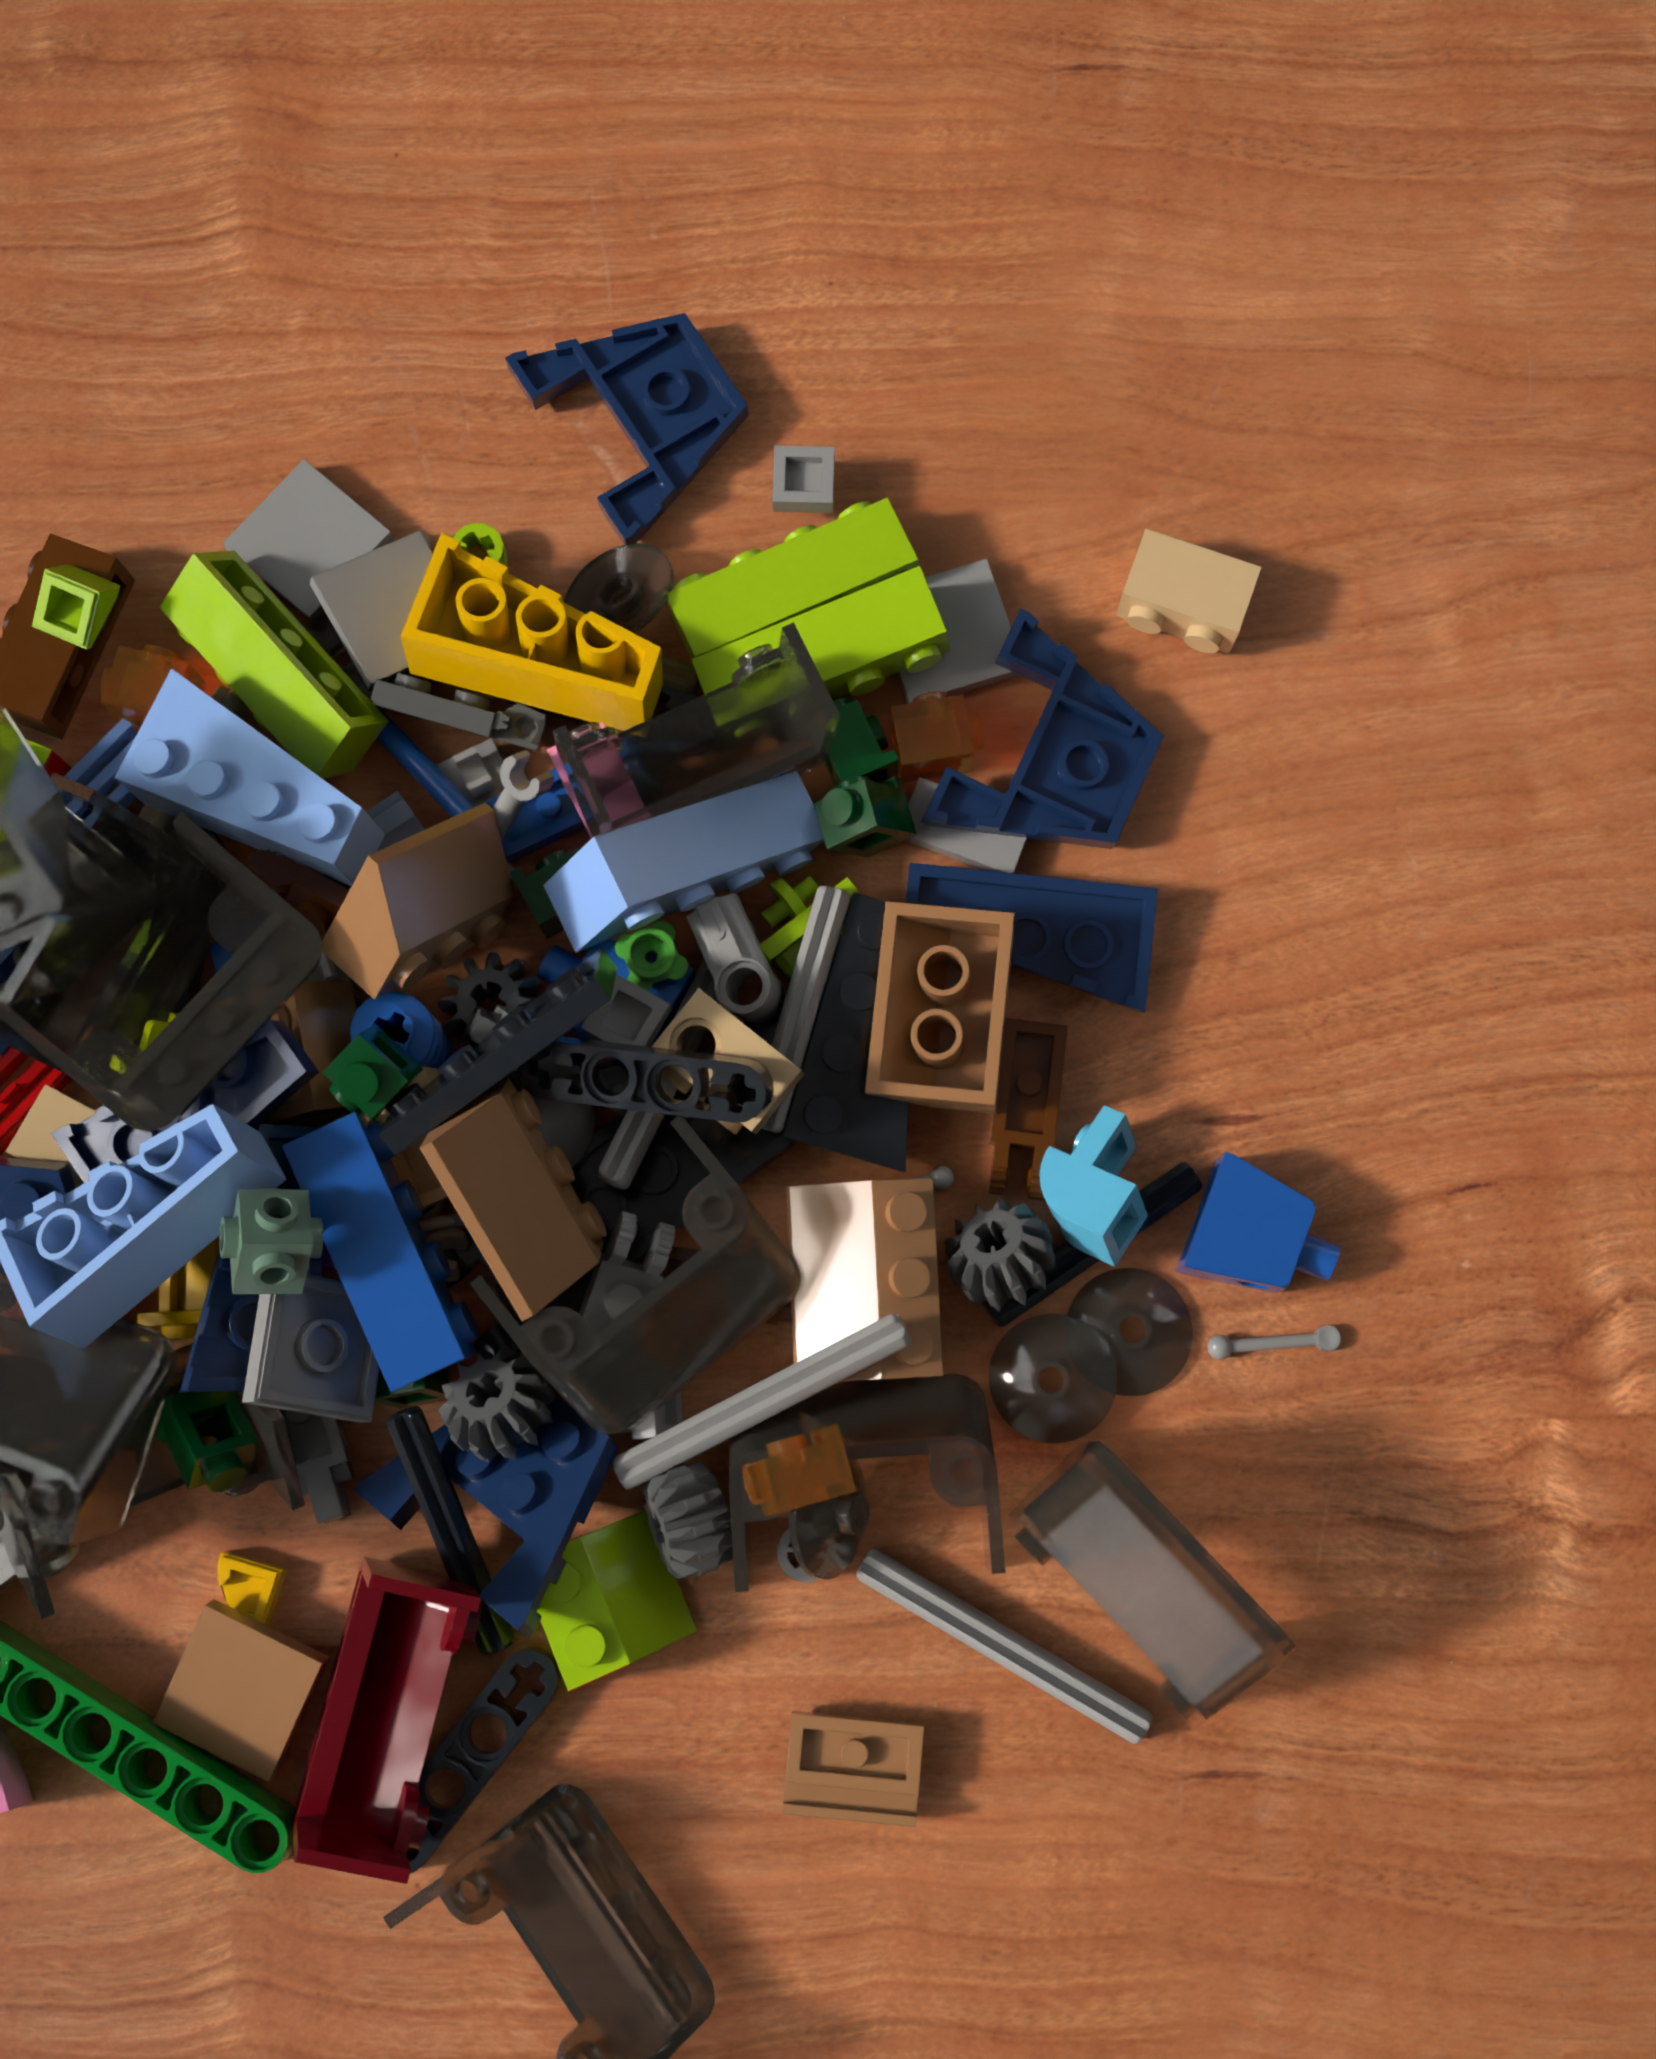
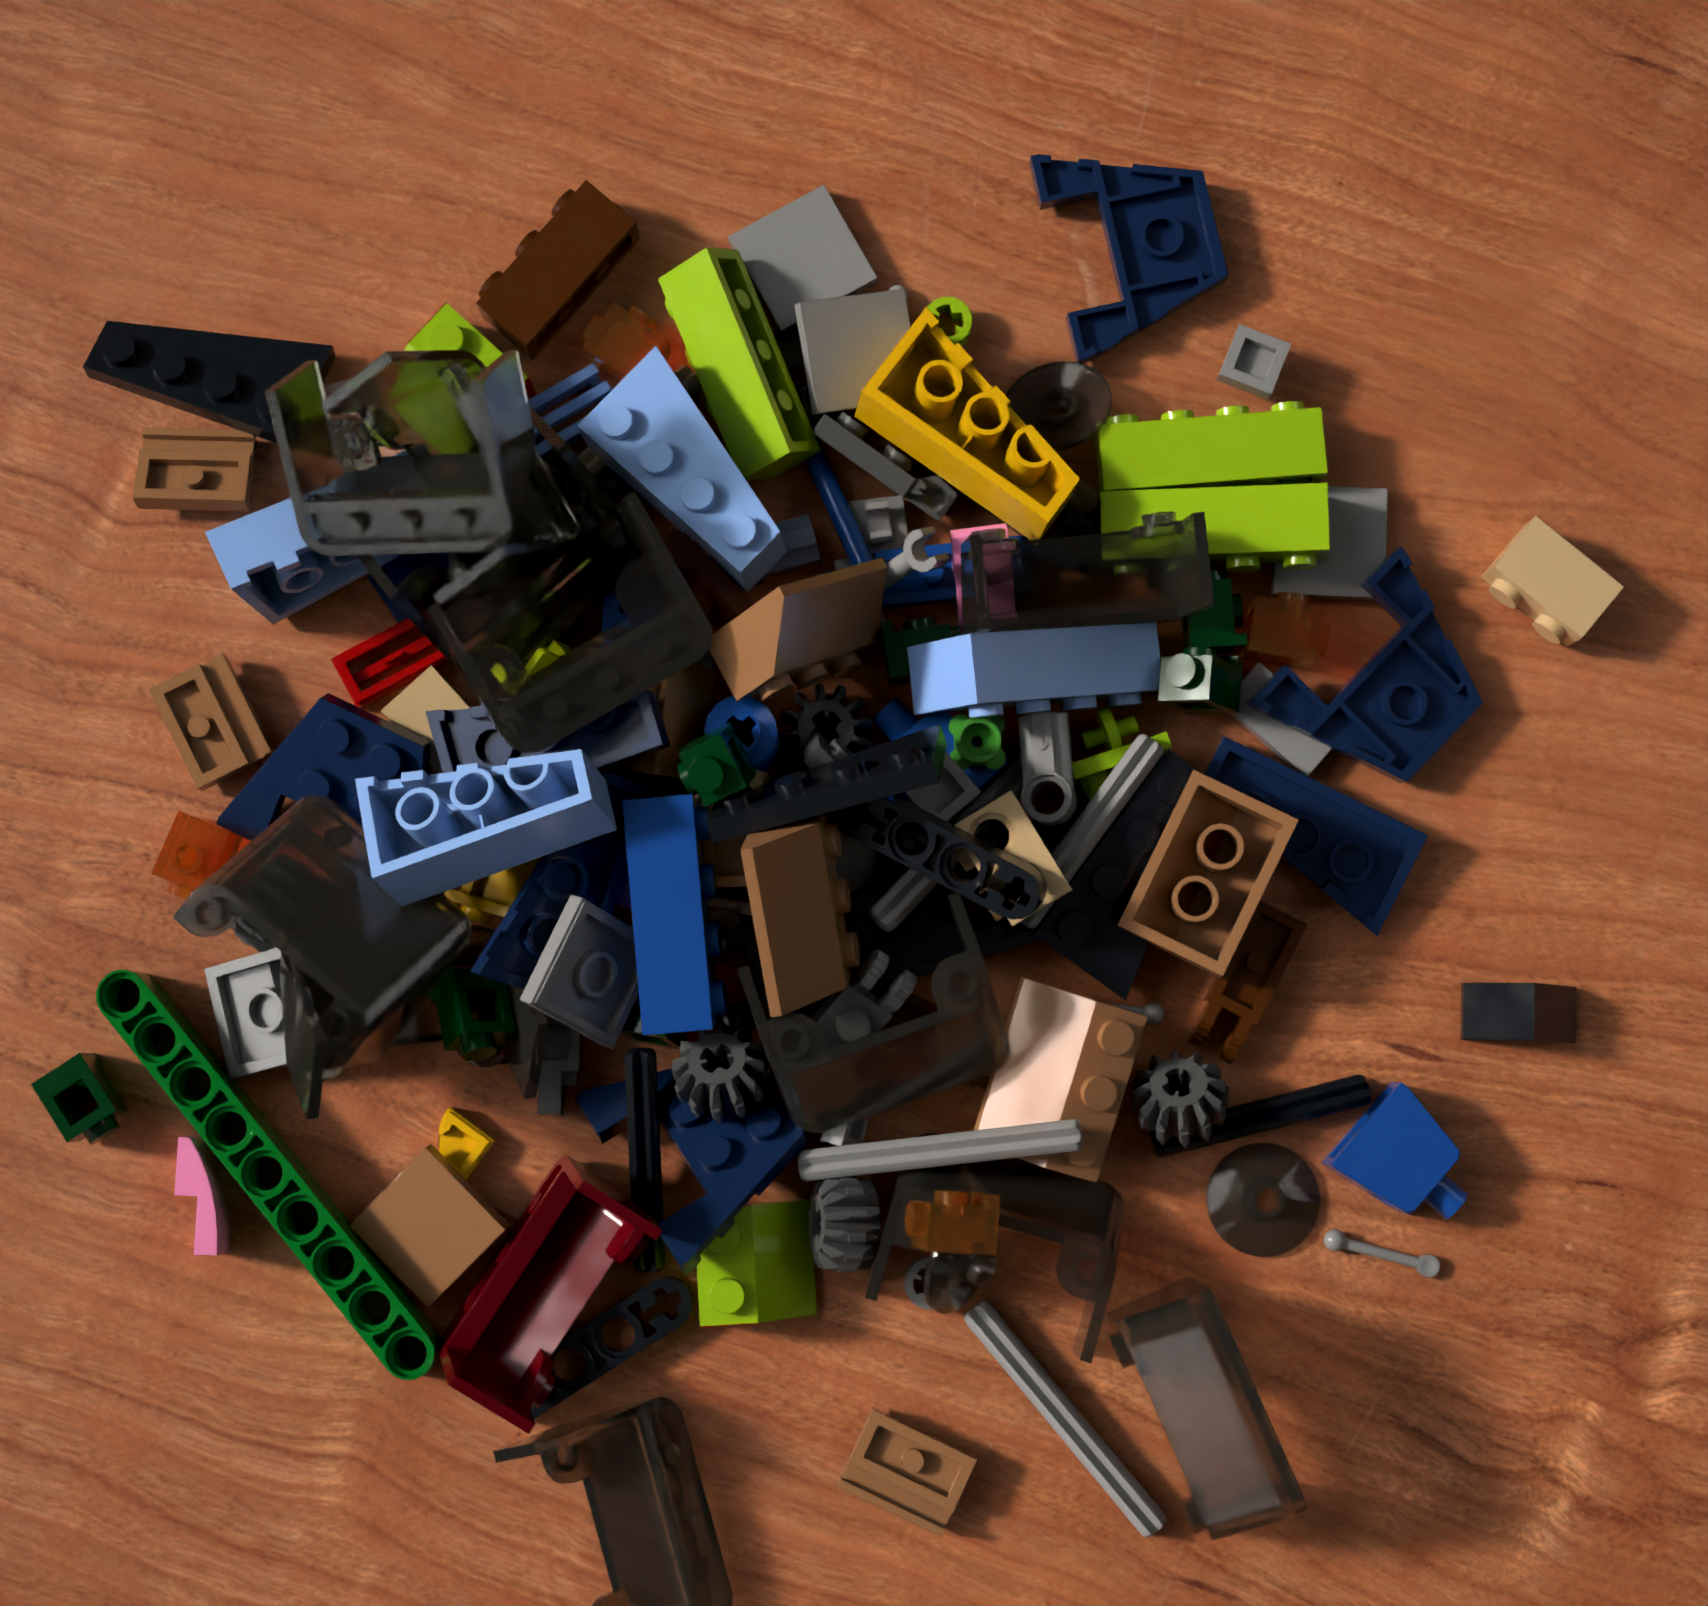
camera: 15 degrees right, 5 degrees up
(74, 604) = (588, 253): lime slope -> none
(270, 1241) = (589, 878): sand green brick -> none
(1085, 1194) = (1269, 1072): medium azure brick -> none
(1086, 1369) = (1203, 1190): clear smoke dish -> none
(1320, 1038) = (1518, 1012): none -> black slope

